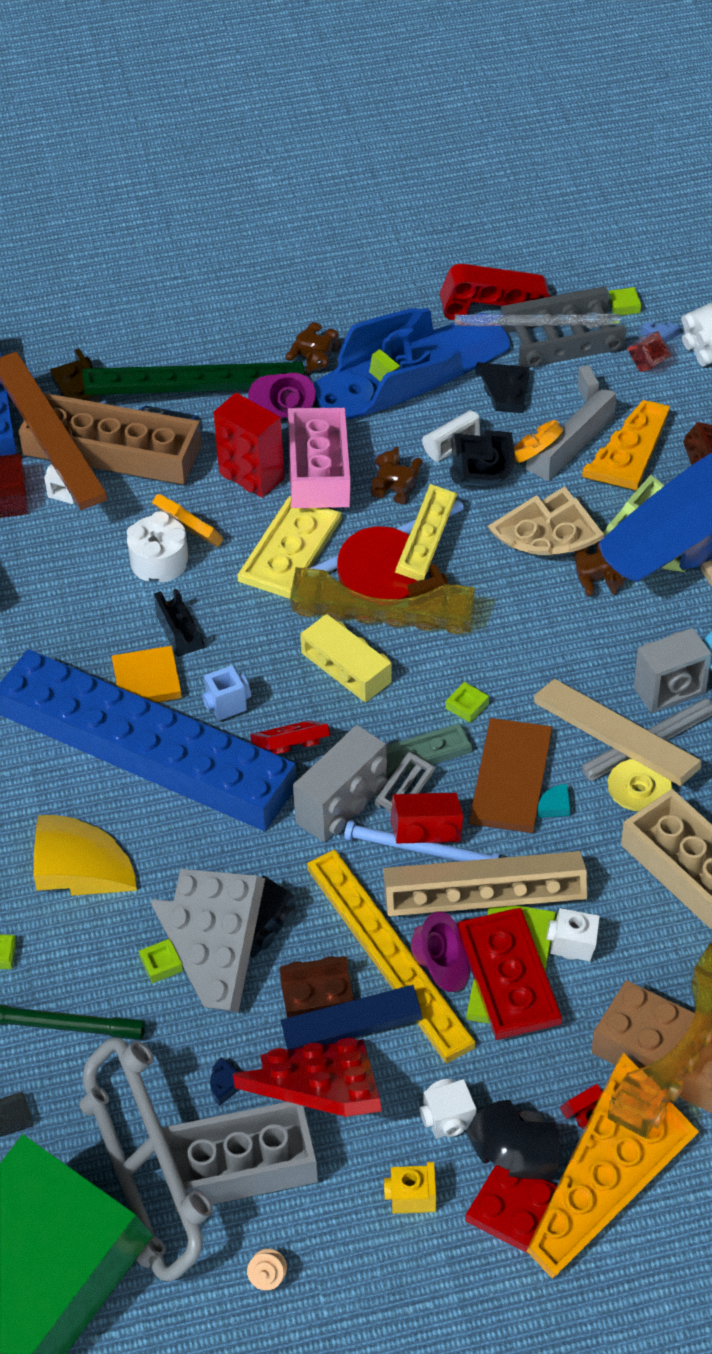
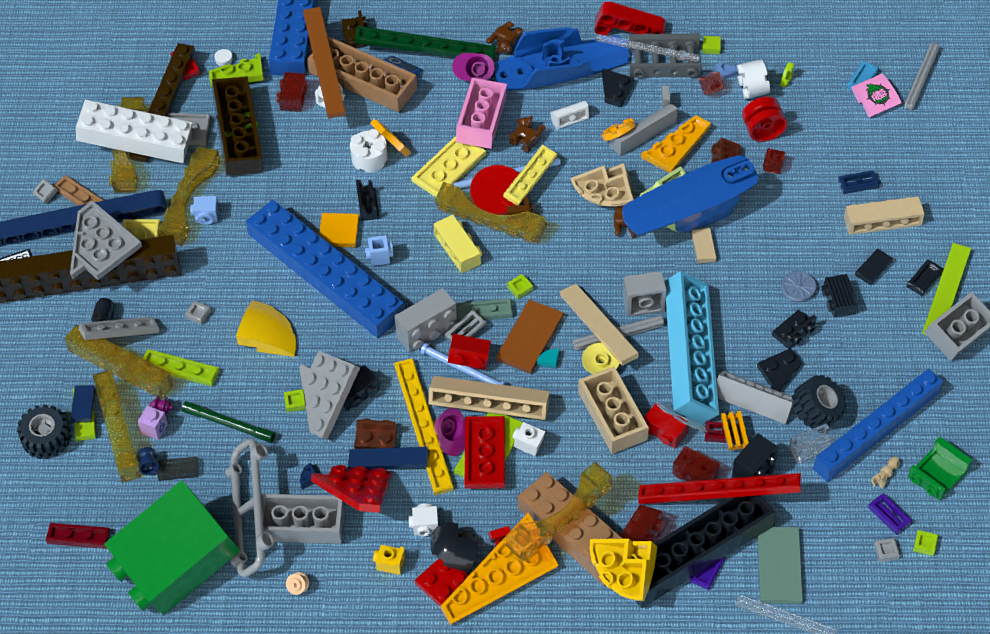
camera: 15 degrees right, 5 degrees up
(249, 445) = (440, 97): red brick -> none
(280, 738) = (401, 285): red plate -> none
(382, 364) = (539, 60): lime tile -> none
(482, 458) = (581, 134): black brick -> none

